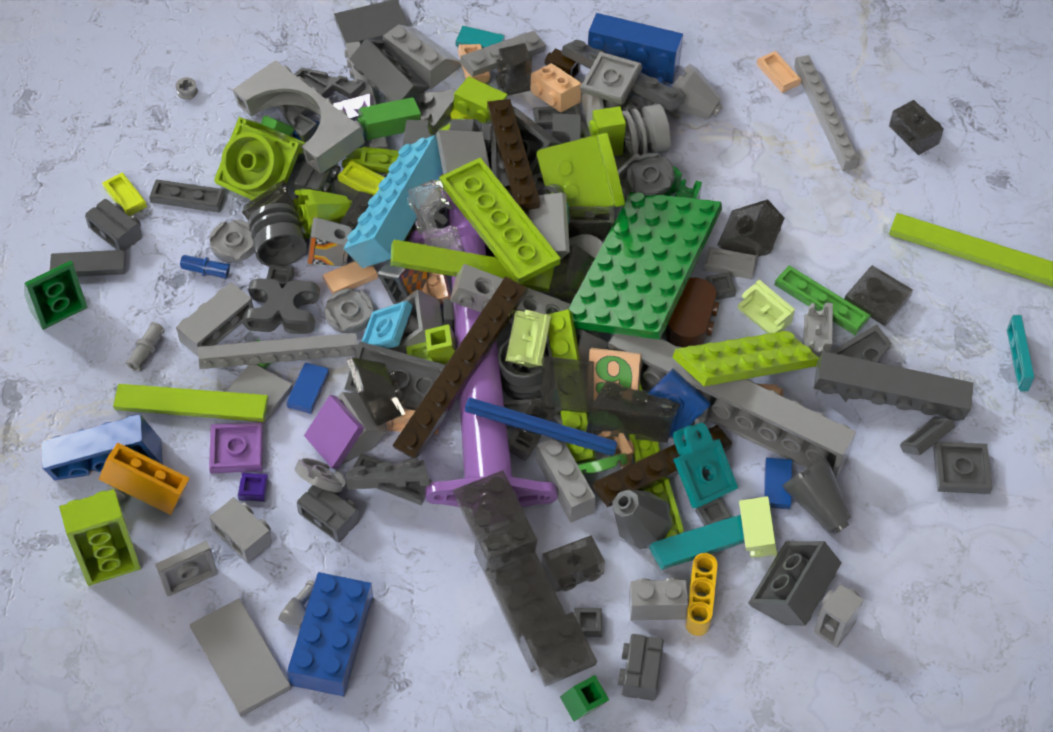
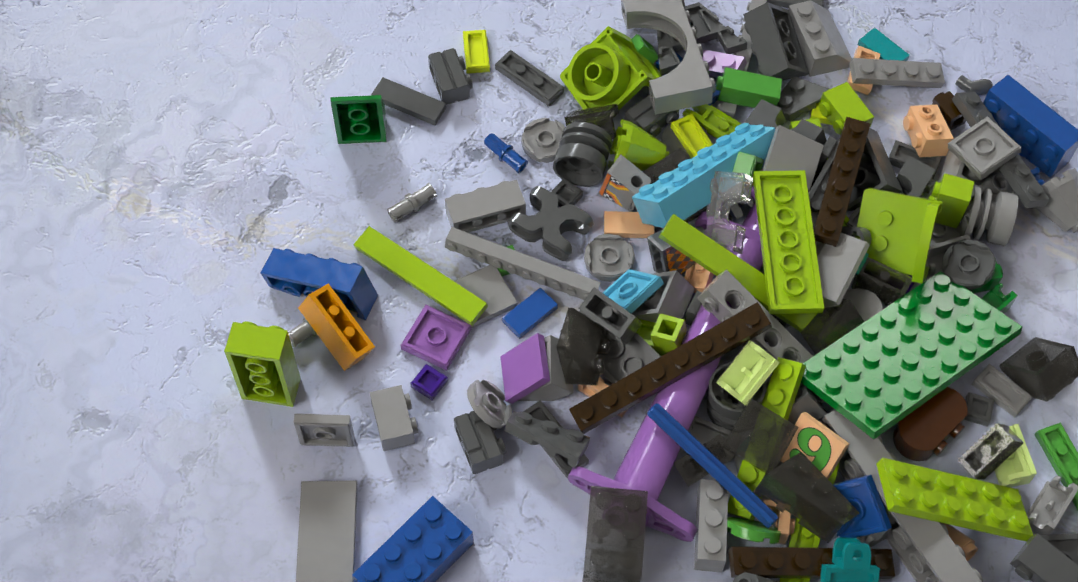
camera: 30 degrees right, 5 degrees up
(295, 609) = (395, 518): light grey bar -> none
(387, 349) = (610, 315): none -> dark grey brick
(428, 172) = (747, 164): none -> bright green slope
(514, 69) = (896, 94): clear smoke brick -> none
(578, 33) = (979, 86): none -> dark grey arm
(751, 309) = (990, 451): none -> clear smoke brick

